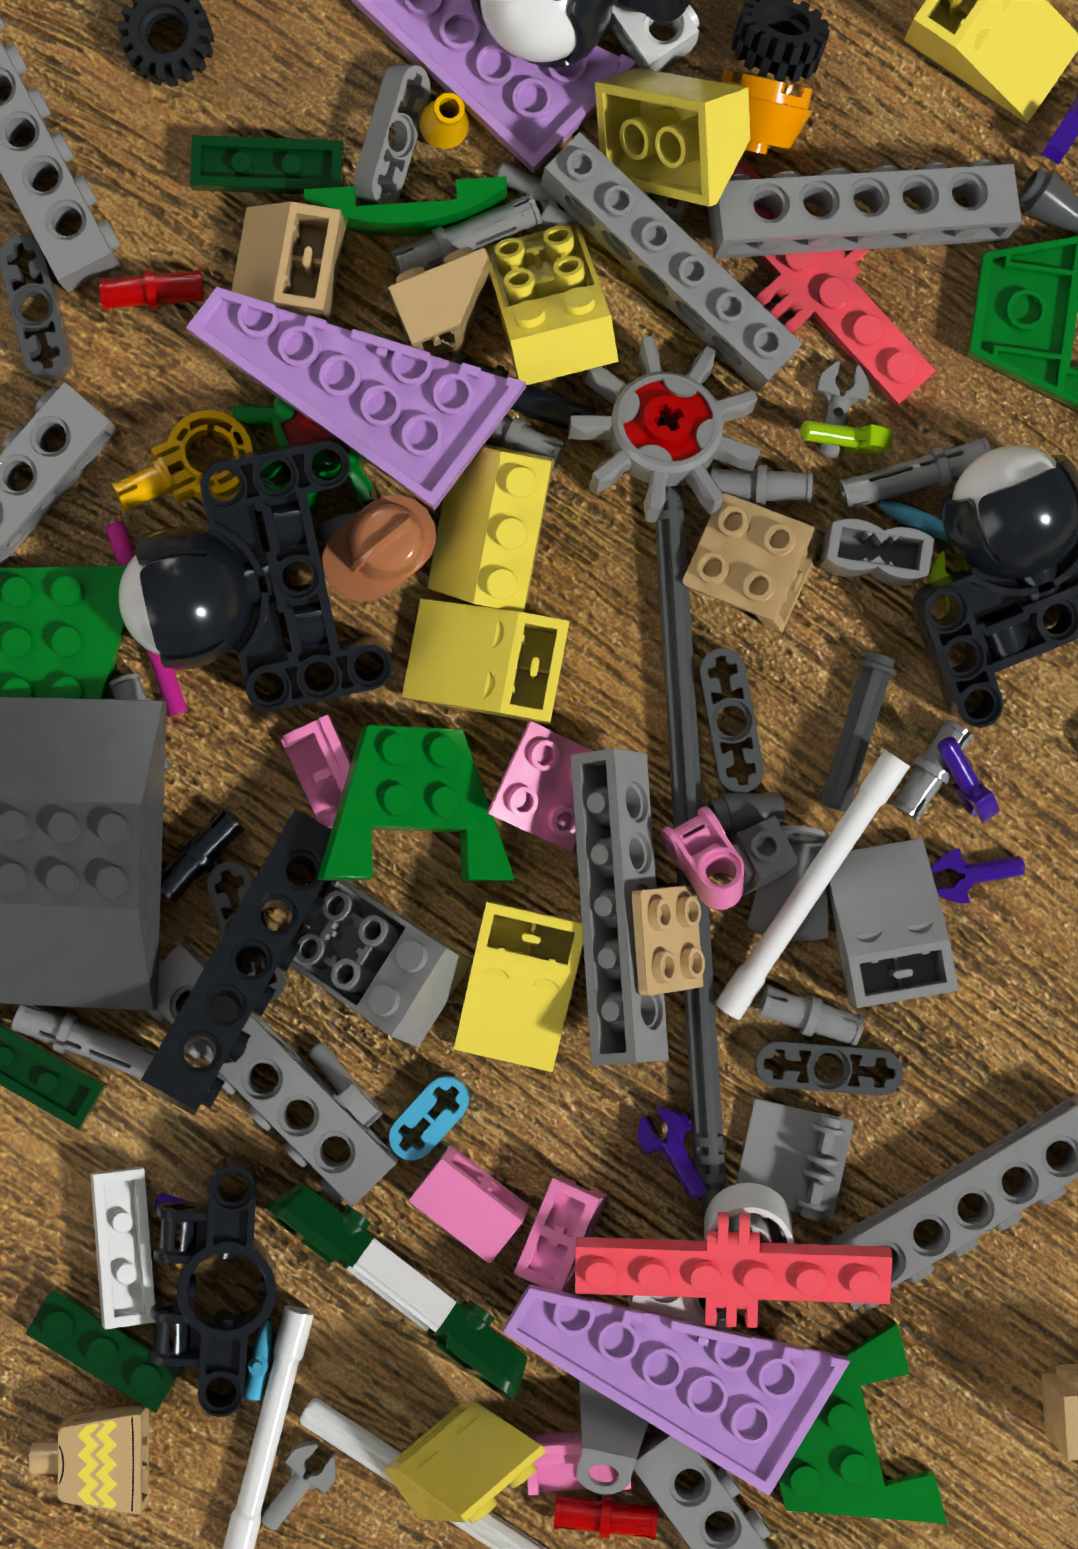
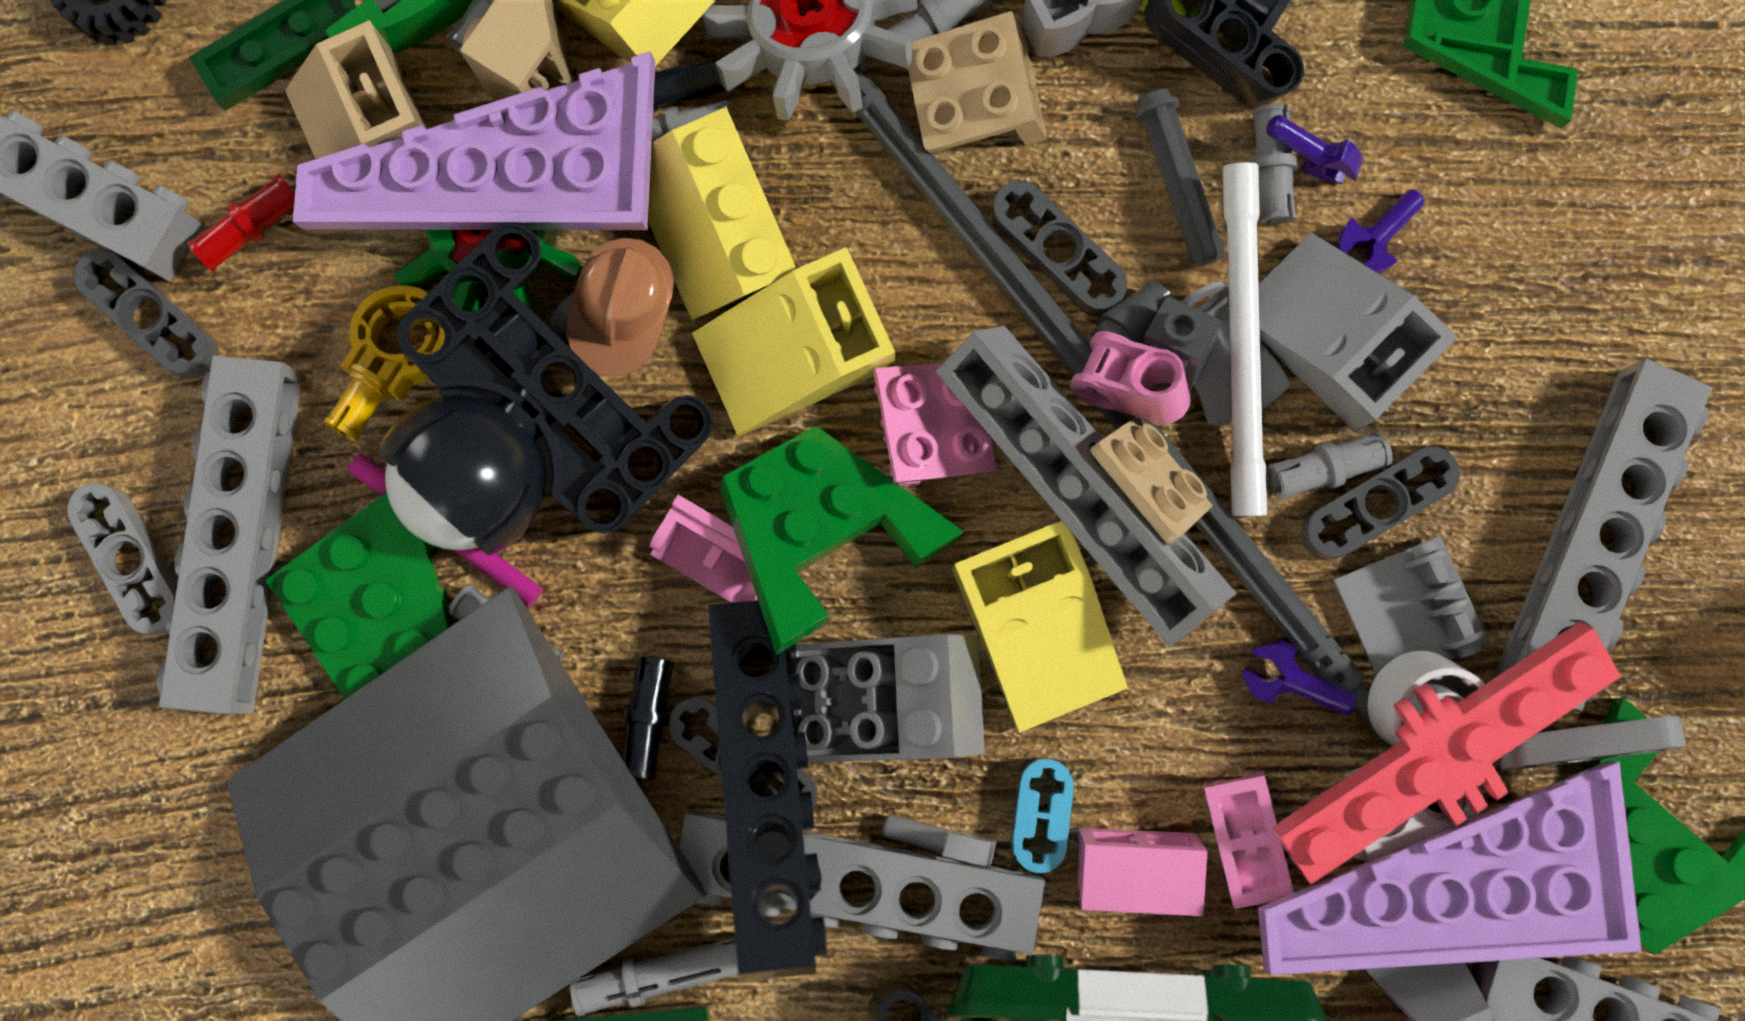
camera: 30 degrees left, 5 degrees down
(848, 1338) = (1596, 743): none -> light grey beam

